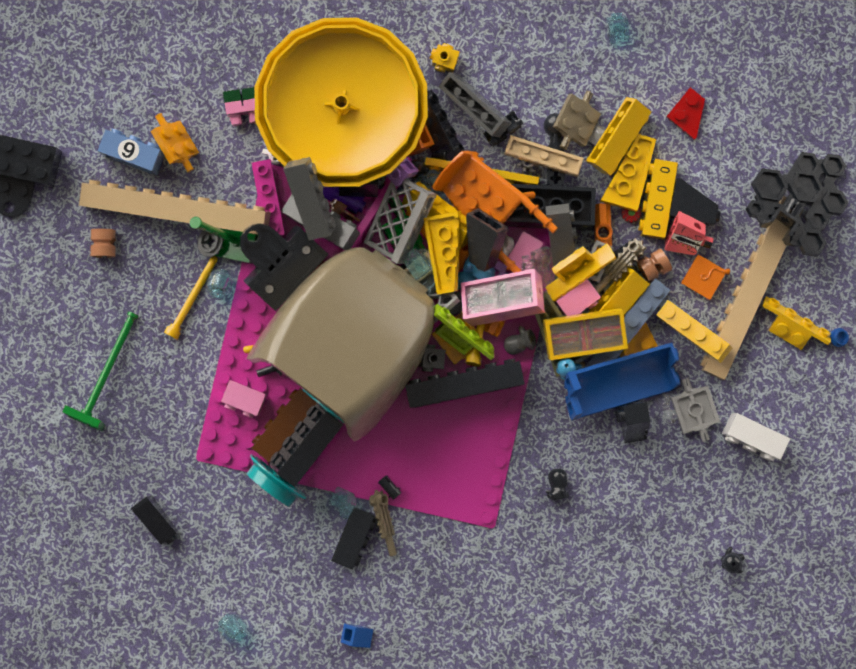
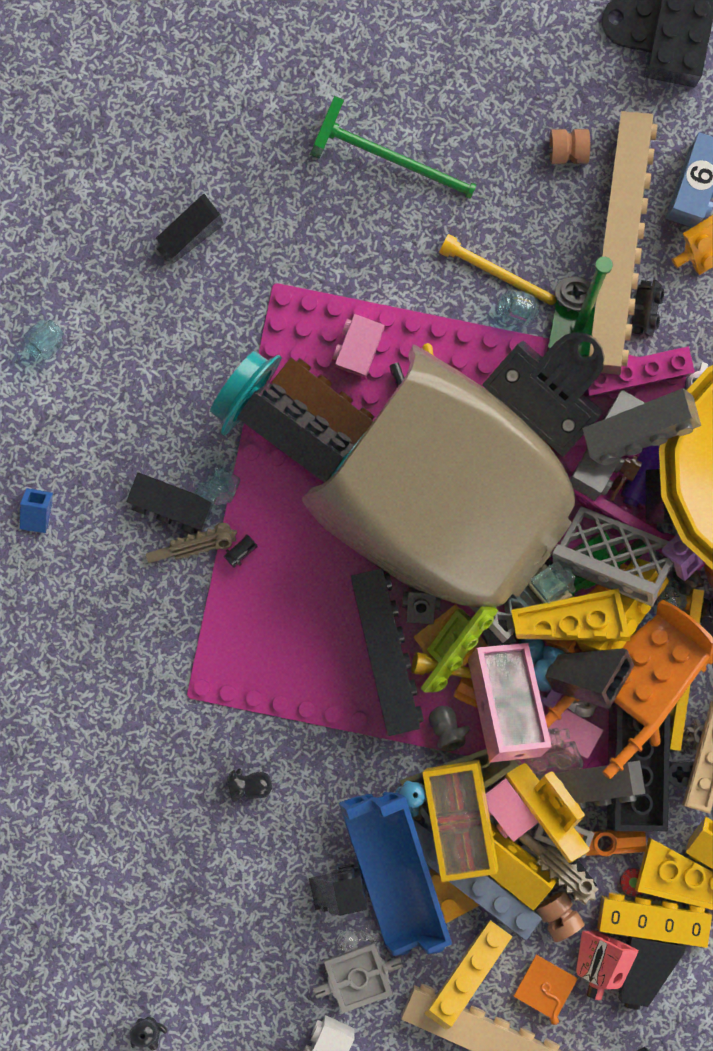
camera: 90 degrees right, 0 degrees up
(230, 191) = (650, 297): none -> black hinge

